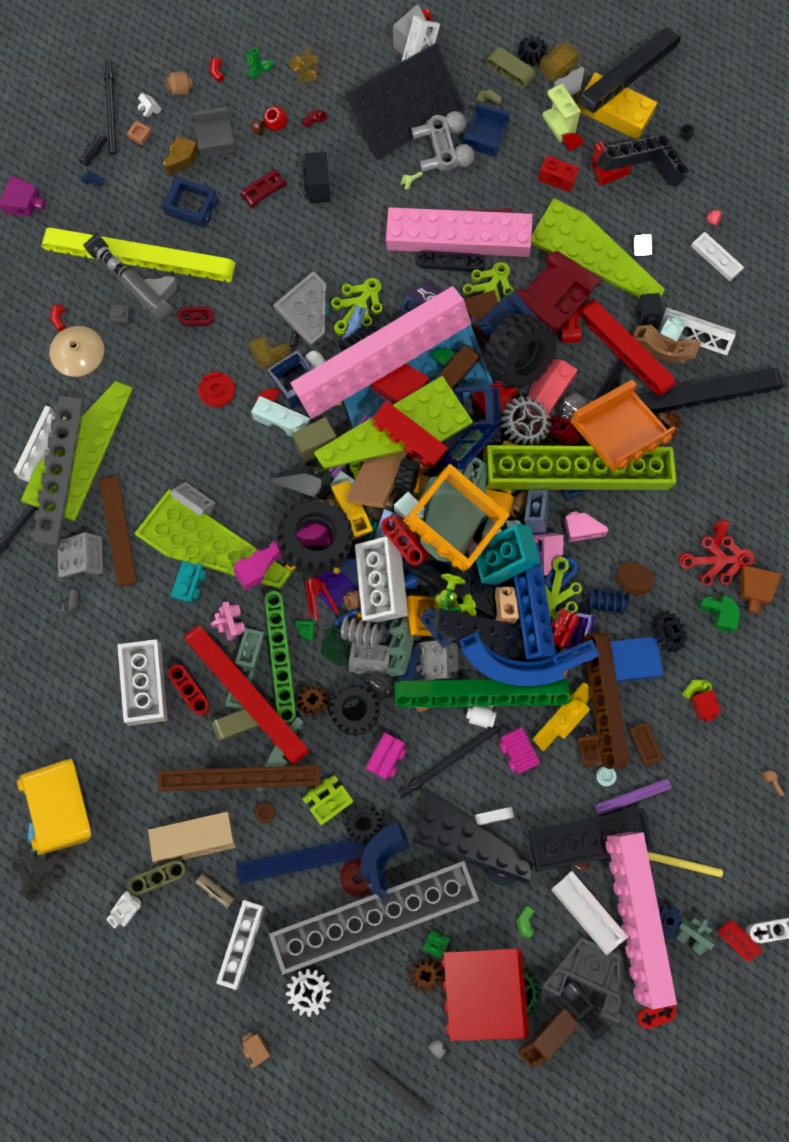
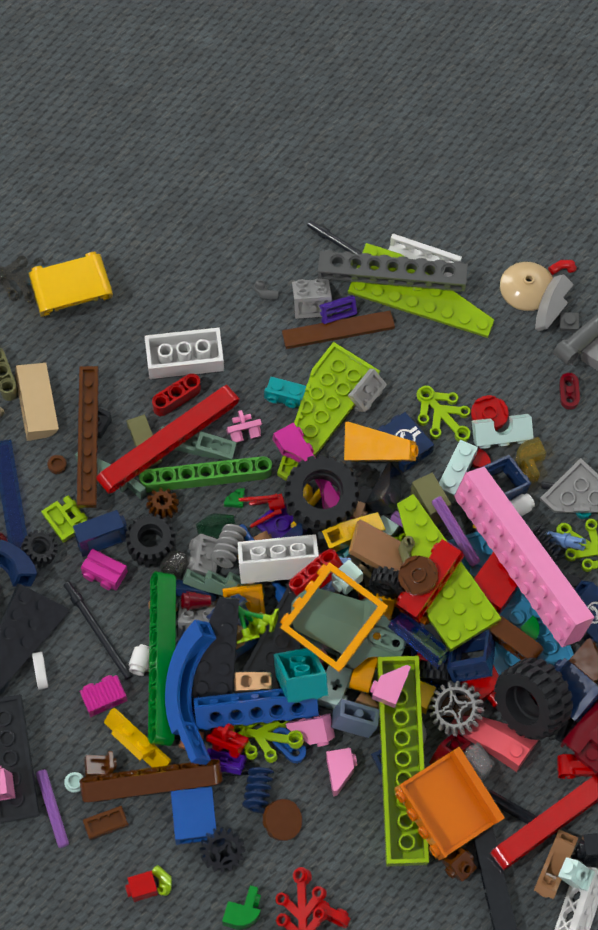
camera: 90 degrees right, 10 degrees down
(97, 528) = (324, 312): none -> dark purple tile
(99, 325) = (552, 302): none -> light grey slope
(215, 433) = (442, 411): none -> lime plant
(239, 361) = (519, 430): none -> light aqua arch
(247, 466) = (406, 428): none -> dark blue panel
(257, 488) = (371, 445): none -> light orange slope
(349, 759) = (100, 532): none -> dark blue window
(351, 415) = (455, 531): none -> medium lavender axle
(374, 460) = (406, 547): none -> olive arm
(408, 442) = (418, 575): none -> reddish brown tile
(423, 664) = (194, 600): none -> dark red cone
(520, 468) = (389, 686): none -> bright pink slope

